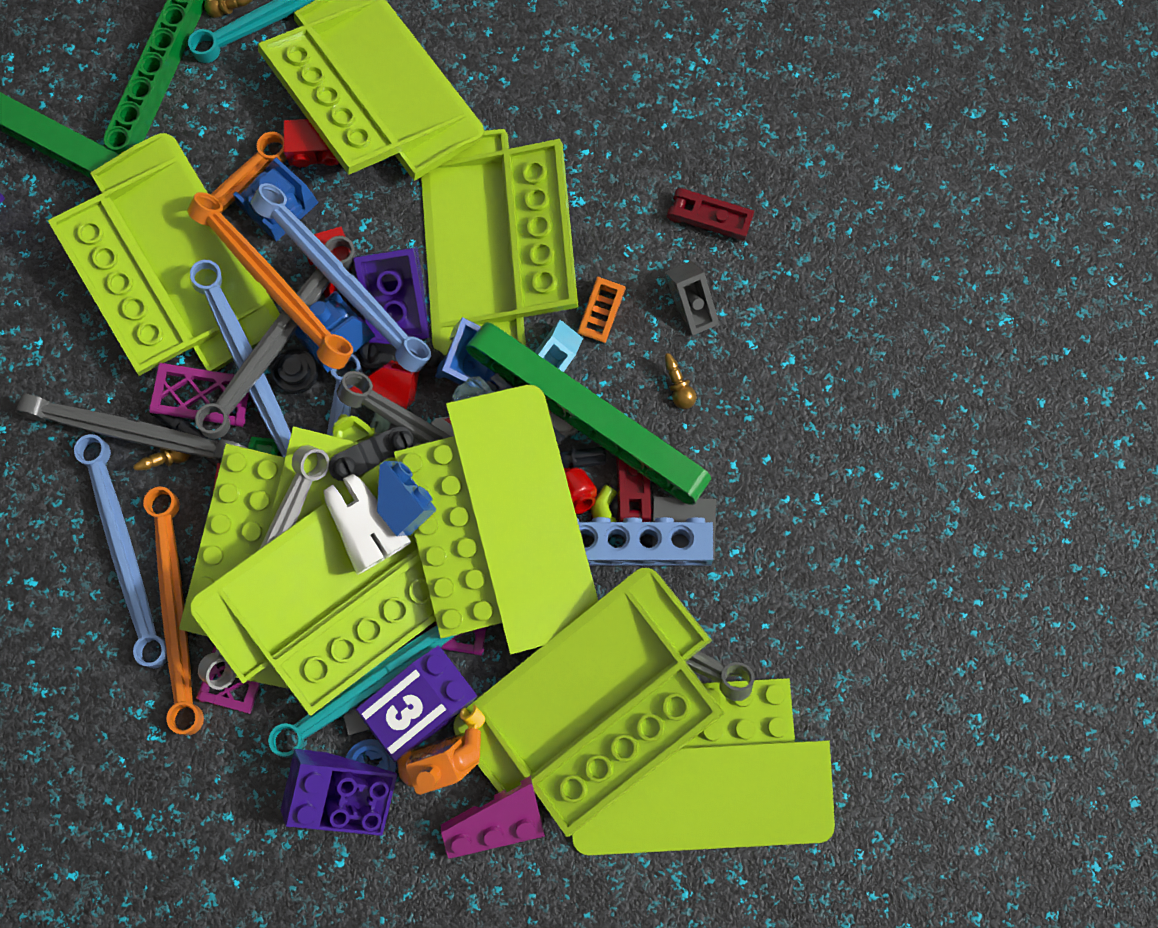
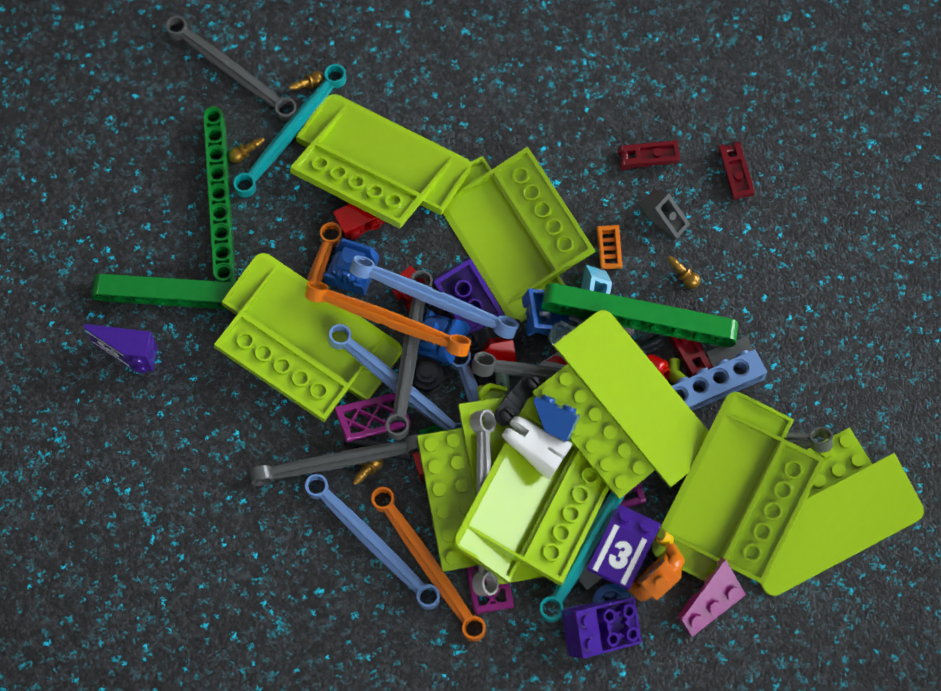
camera: 25 degrees left, 5 degrees down
(811, 282) = (736, 171): none -> dark red plate

